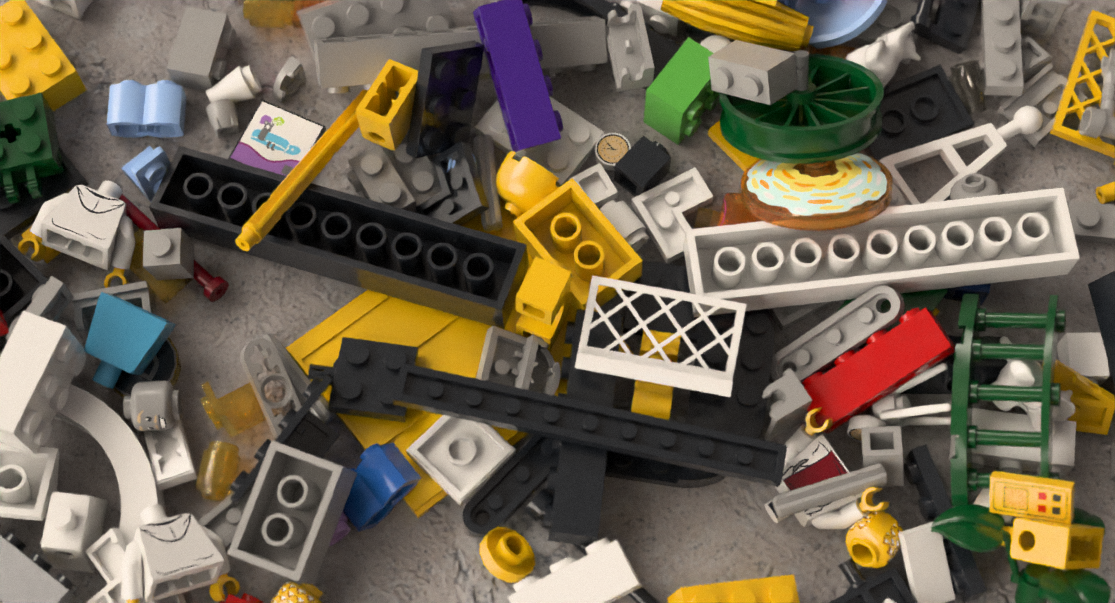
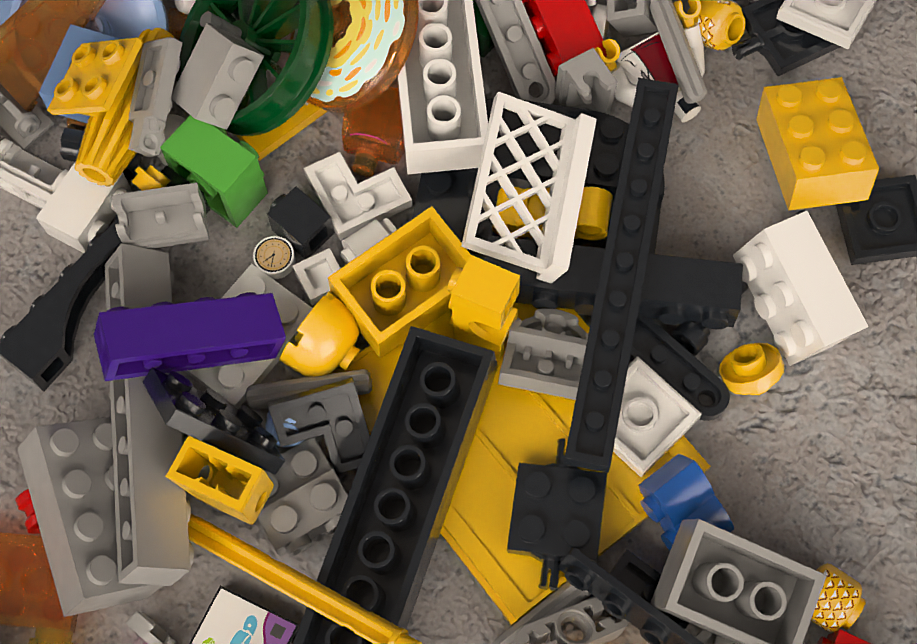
camera: 90 degrees left, 0 degrees up
(663, 38) = (149, 178): none -> yellow plate
(731, 24) = (152, 94): none -> light grey hinge

